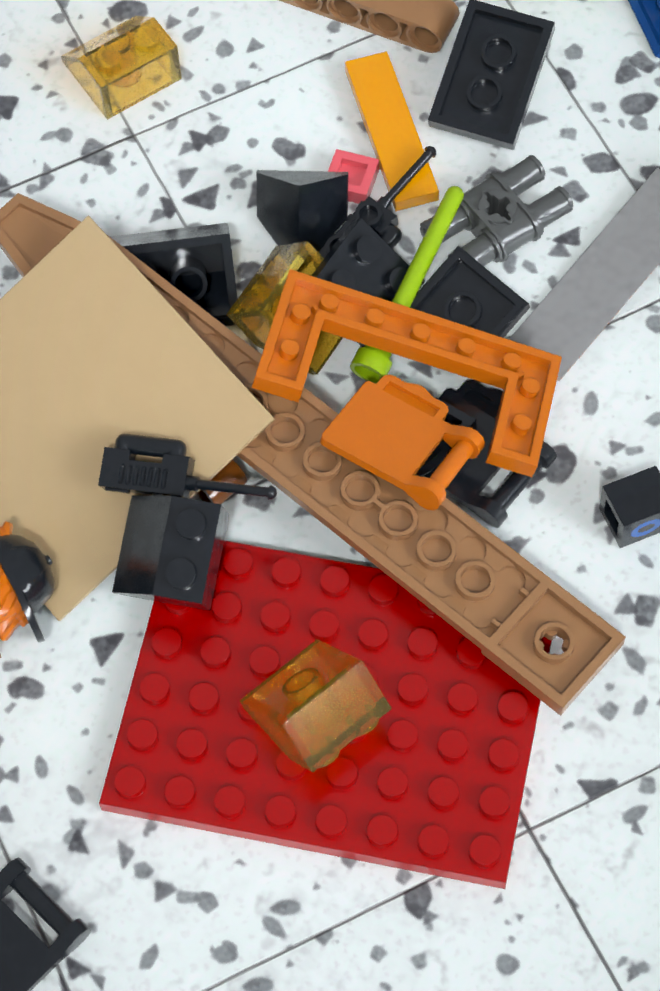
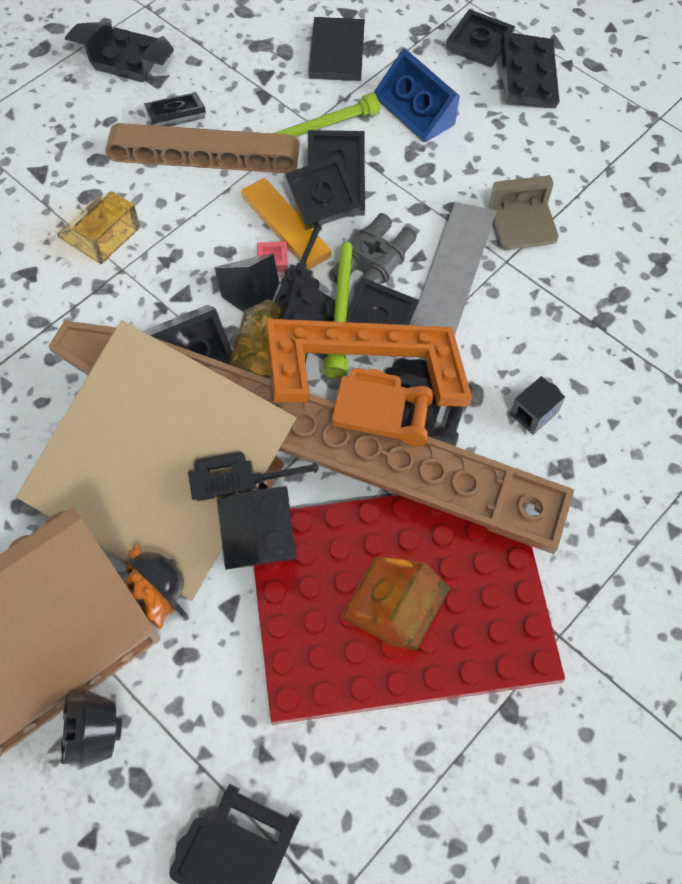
camera: 25 degrees left, 0 degrees up
(455, 100) = (322, 192): none -> black plate

